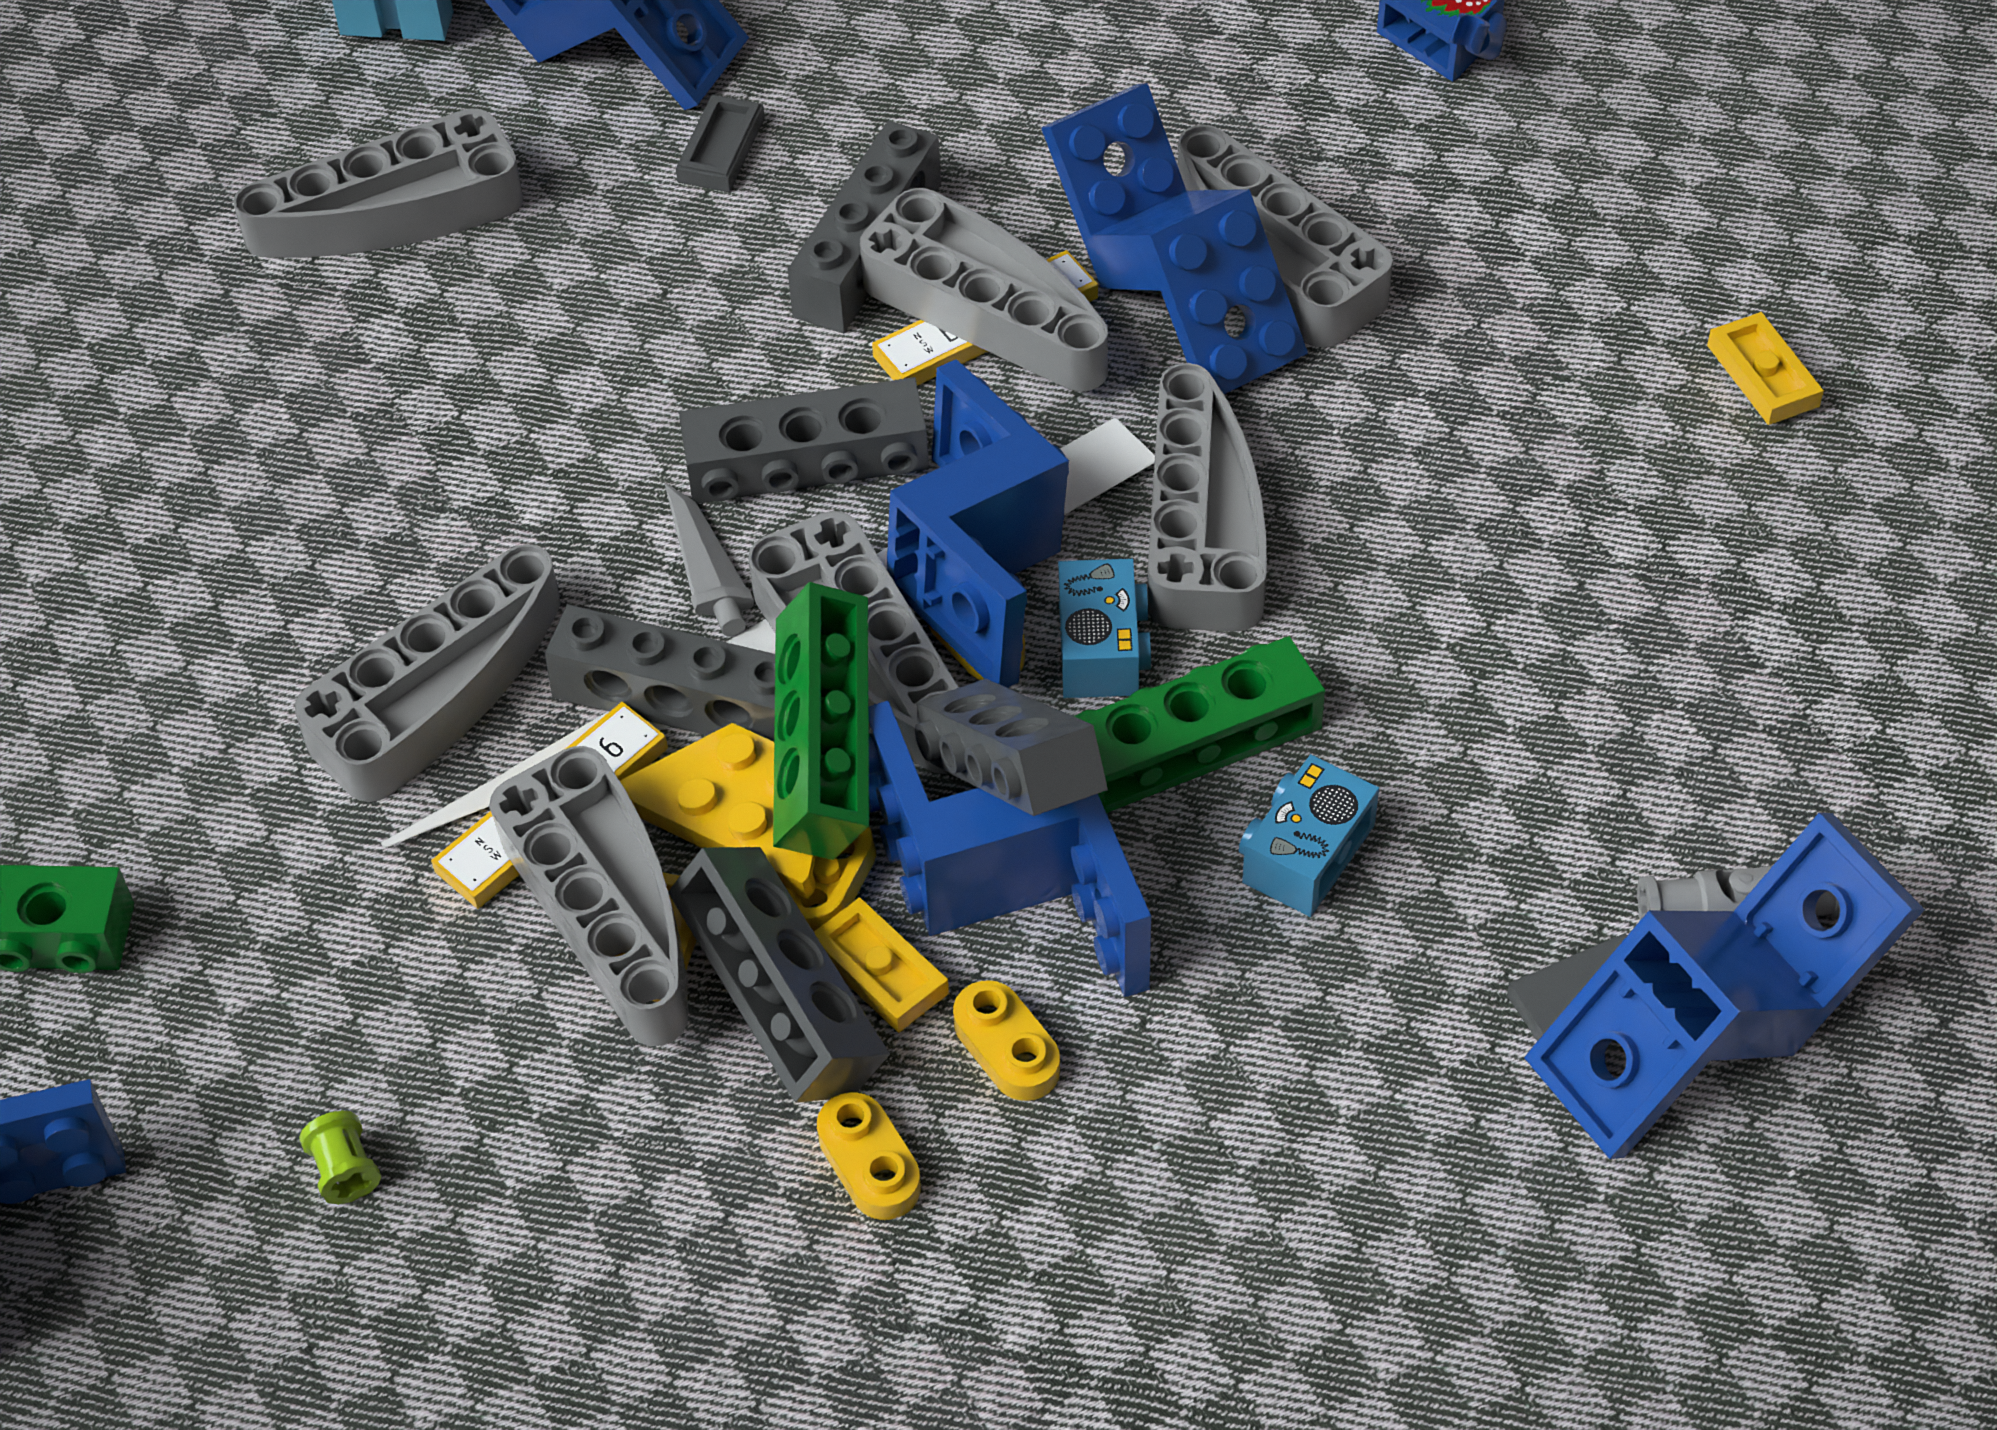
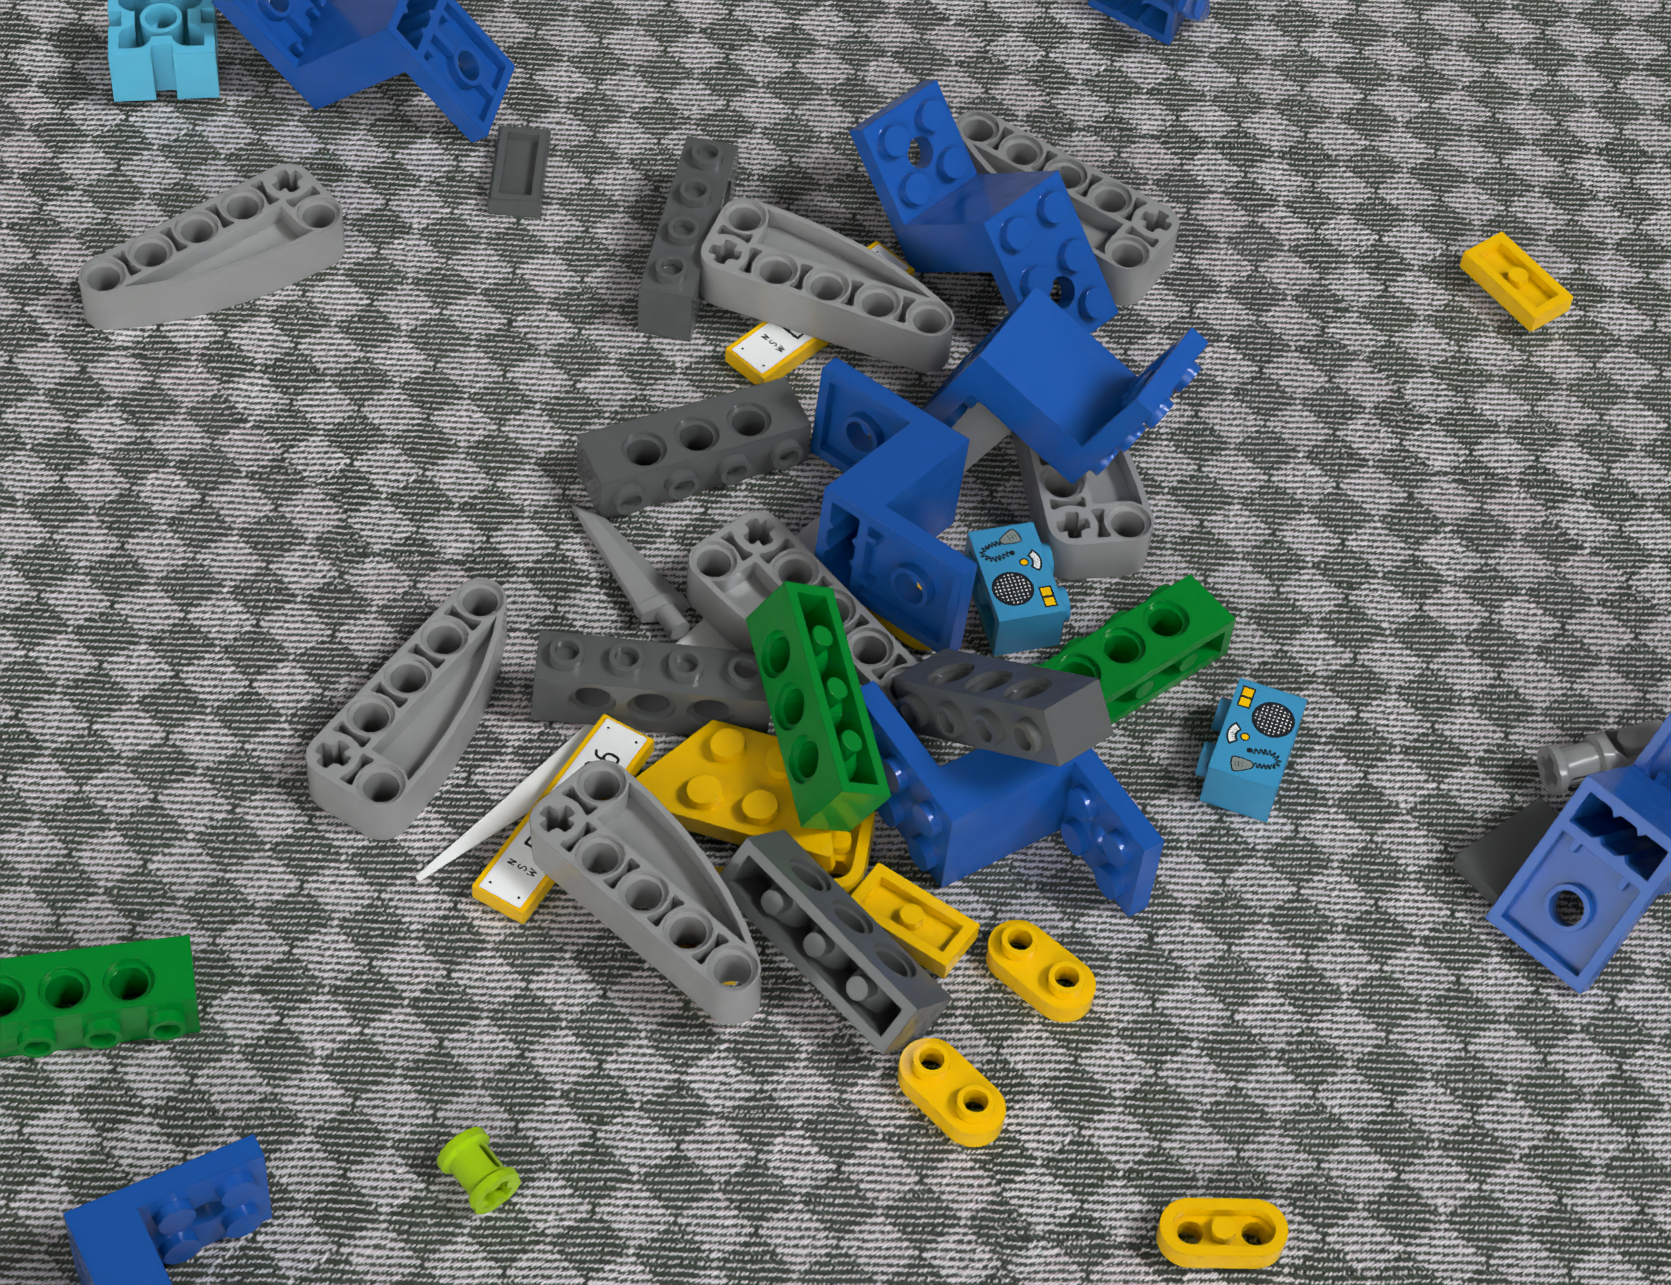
camera: 20 degrees left, 0 degrees up
(1117, 1354) = (1219, 1232): none -> yellow plate
(1188, 416) = (1064, 387): none -> blue bracket

